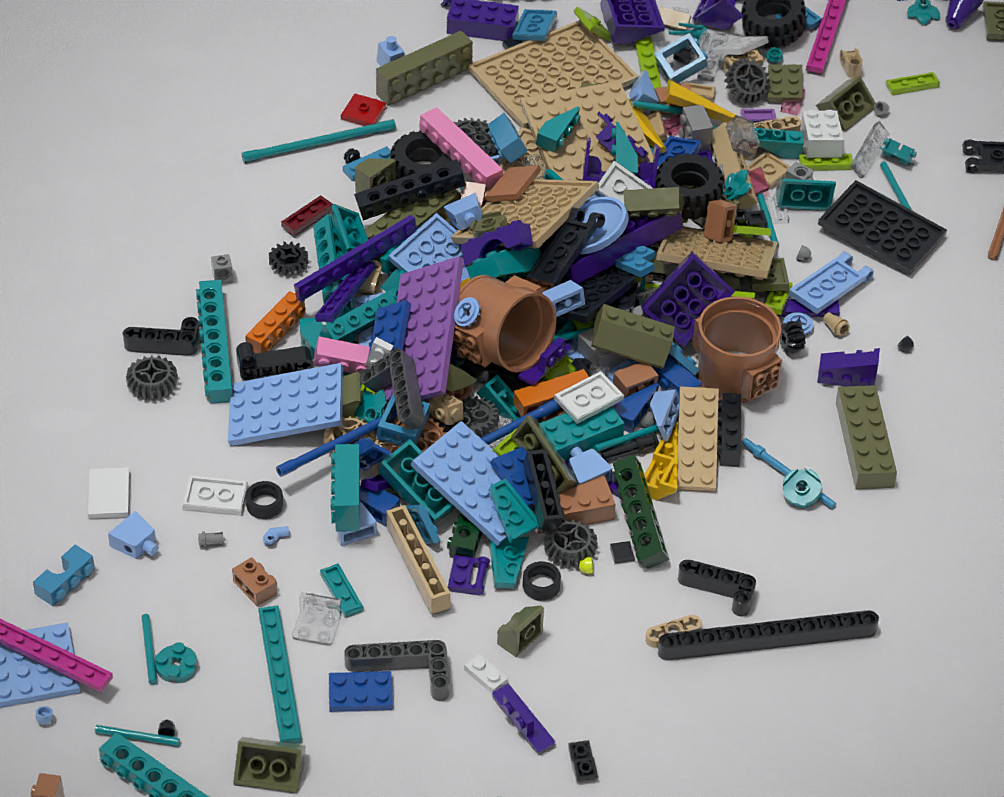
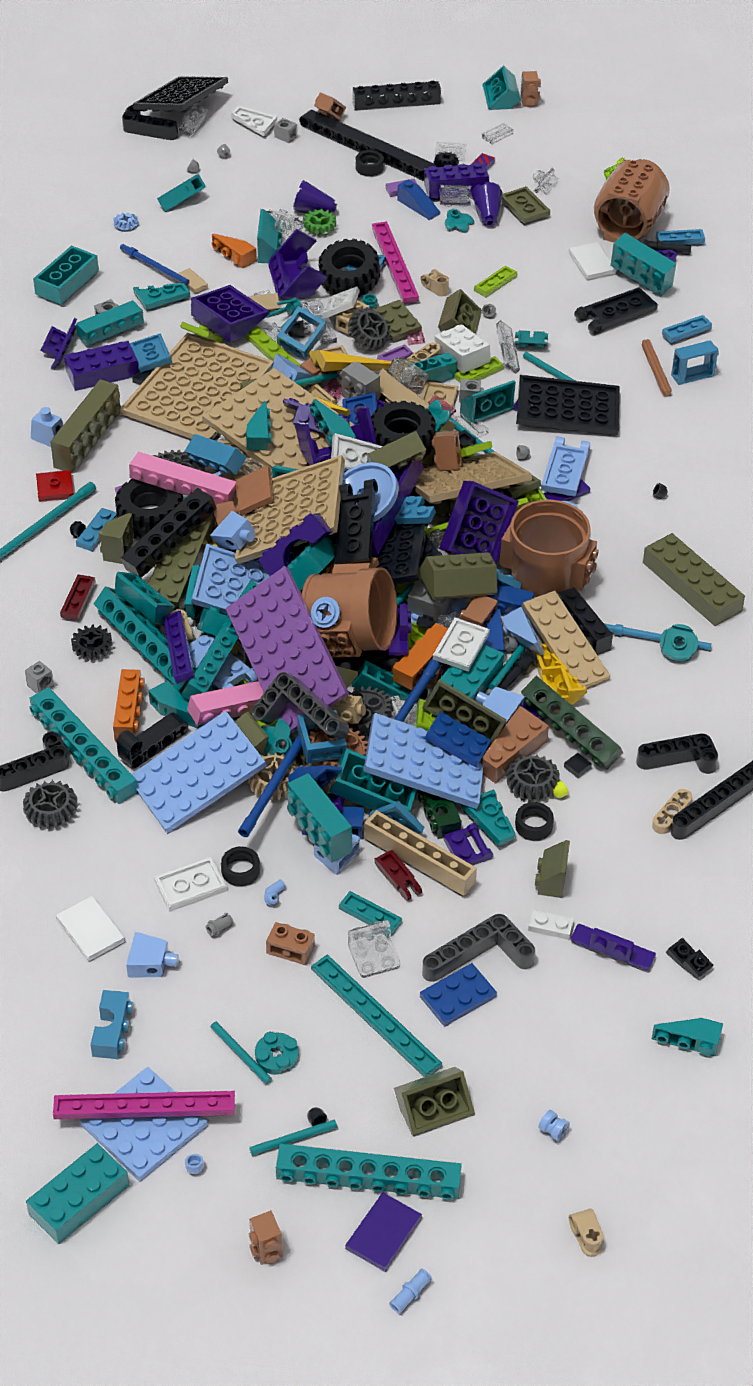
camera: 30 degrees left, 0 degrees up
(355, 258) = (165, 614): dark purple plate -> none
(378, 350) = (259, 683): white plate -> none
(389, 567) = (397, 874): none -> dark red hinge
(392, 324) = (251, 661): blue plate -> none
(488, 223) = (270, 531): olive plate -> none
(512, 510) = (473, 770): teal wing -> none
(543, 490) = (491, 740): black brick -> none
(566, 297) = (390, 560): light blue brick -> none
(838, 325) = (595, 498): tan cone -> none
(849, 369) = (639, 529): dark purple wedge -> none

